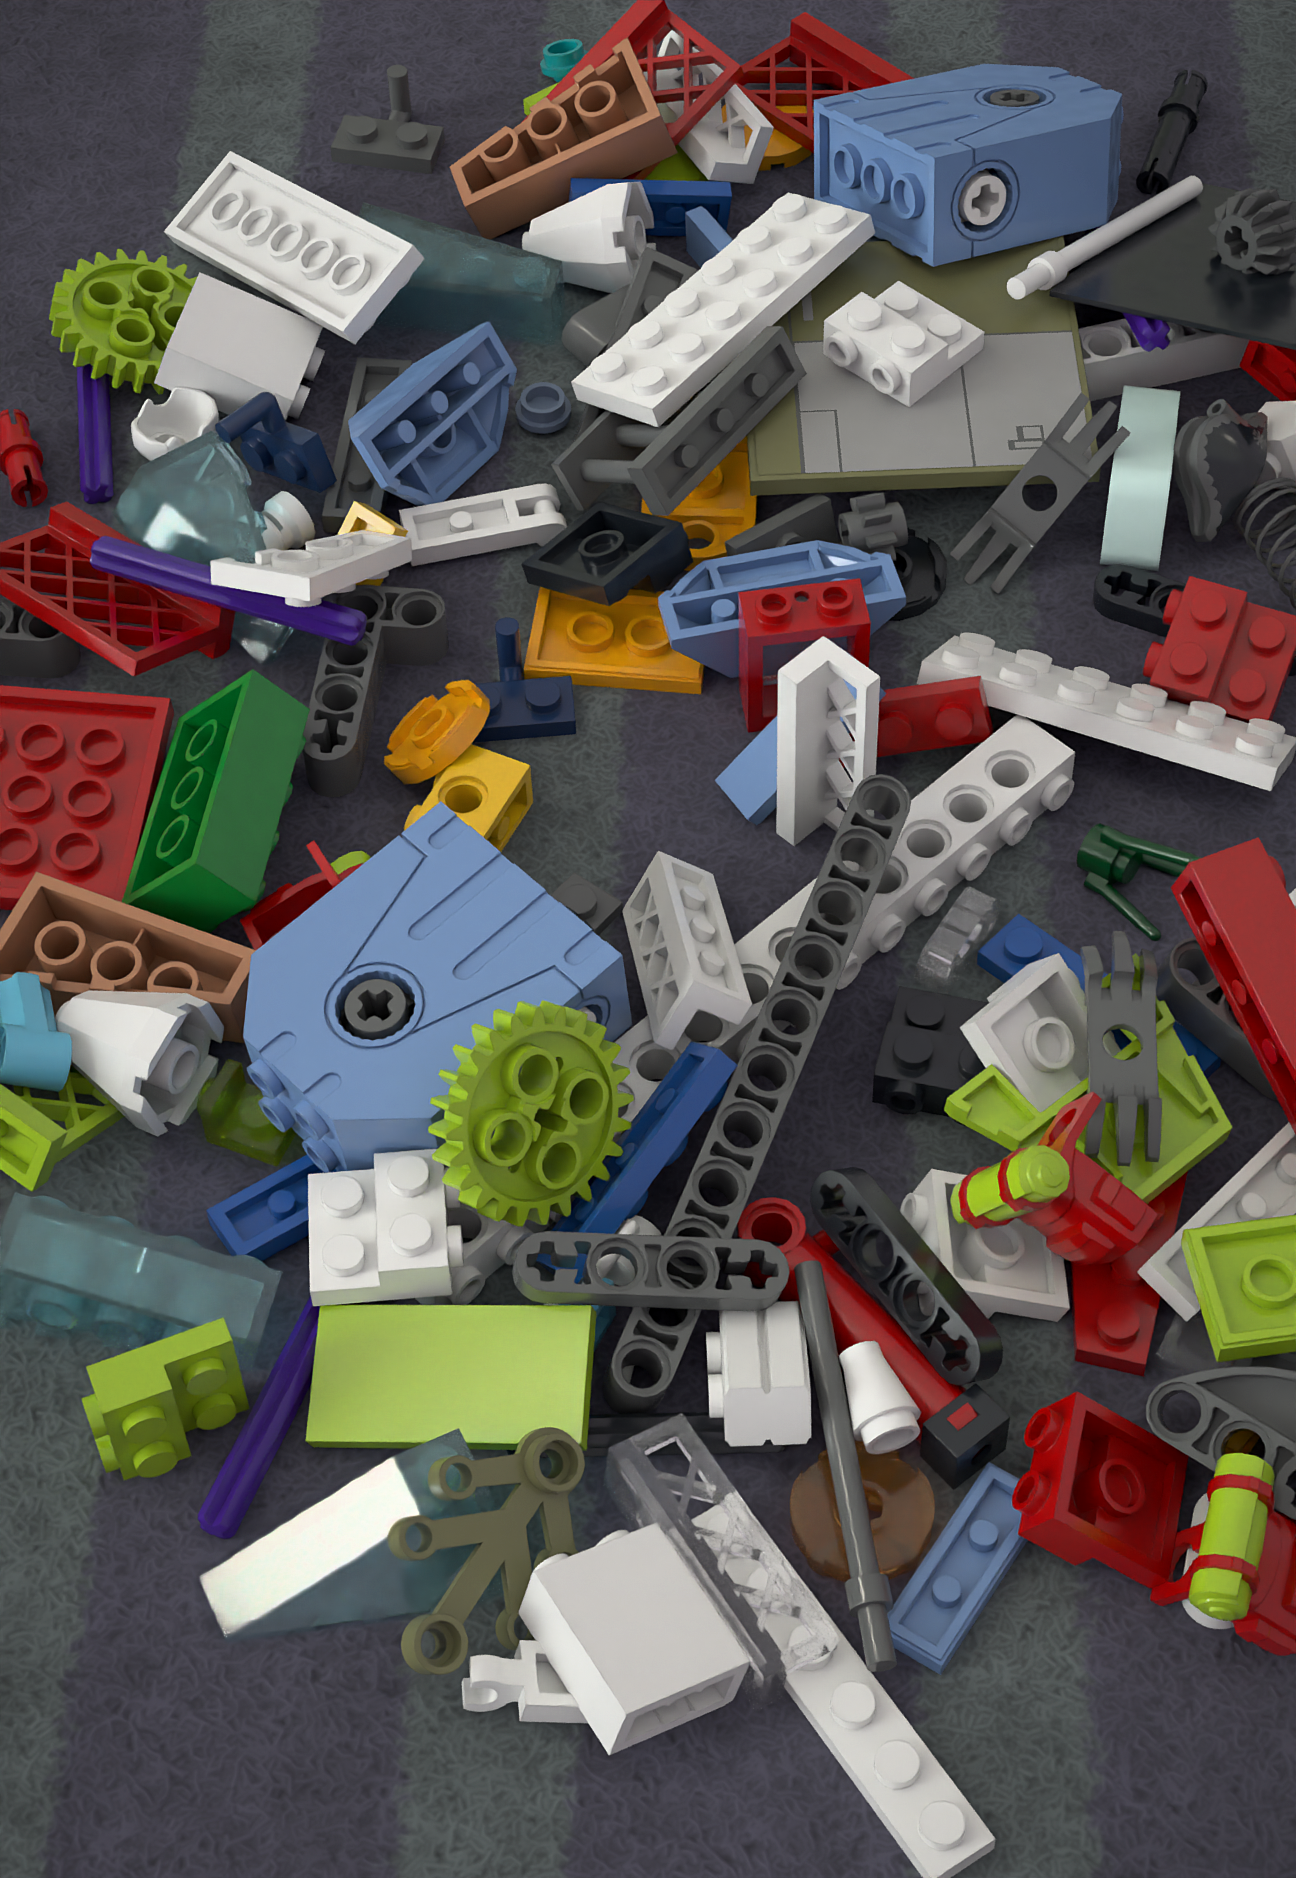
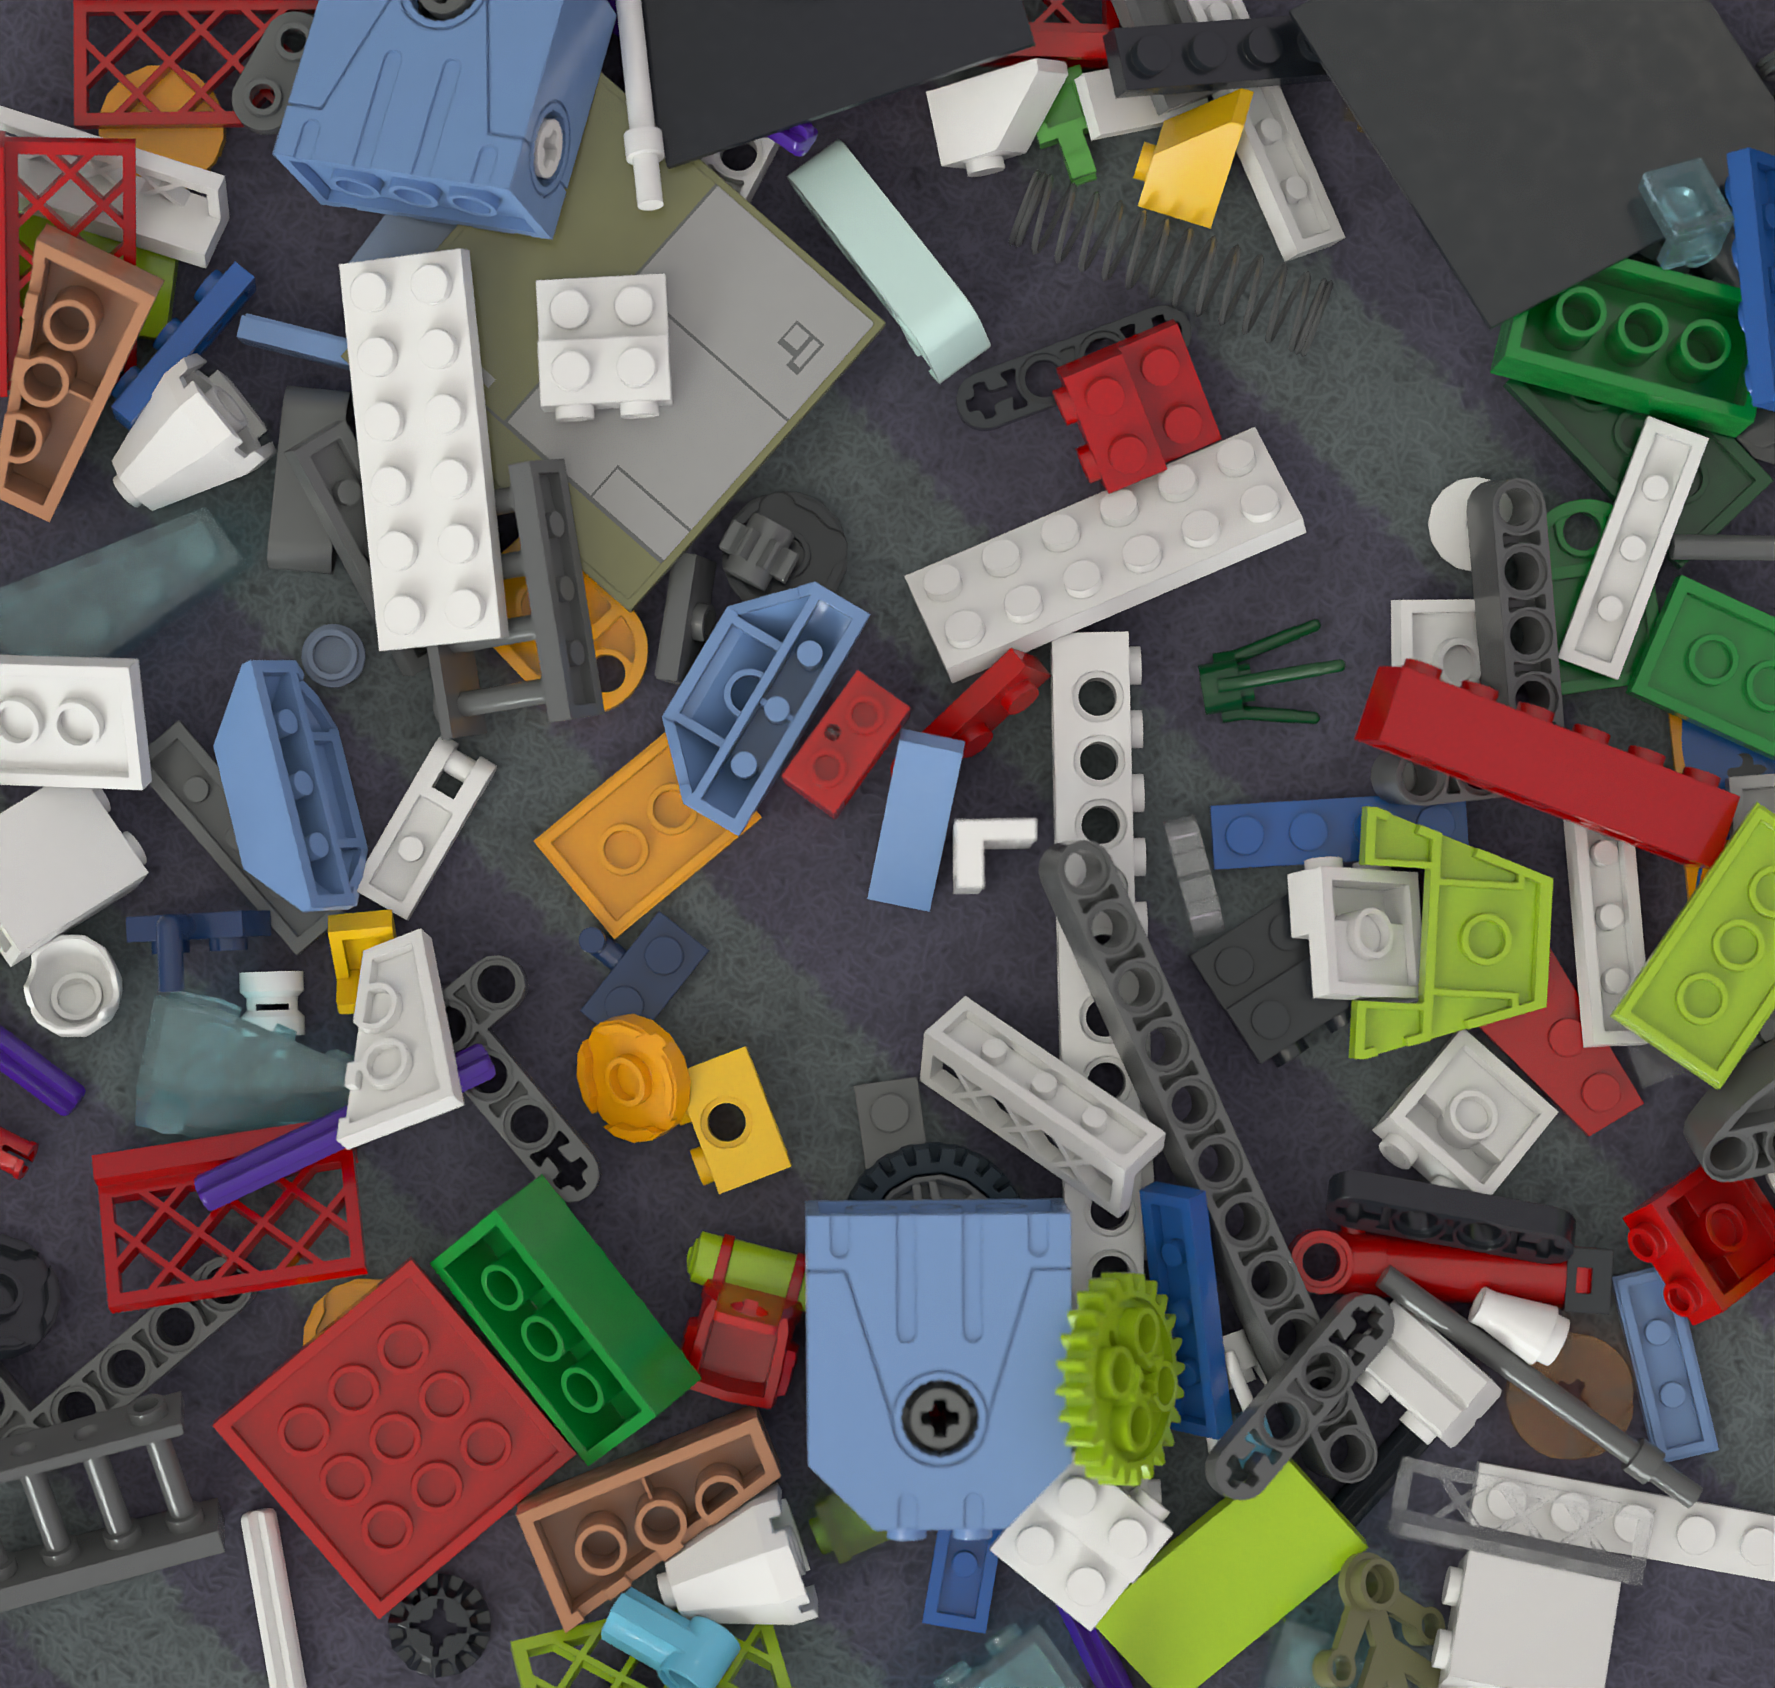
camera: 50 degrees left, 35 degrees up
(610, 554) = (582, 783): black plate -> none
(1059, 1193) = (1501, 1078): red piece -> none
(1065, 467) = (862, 424): dark grey piece -> none
(1115, 1080) = (1403, 878): dark grey piece -> none
(1218, 465) = (968, 214): hat -> none

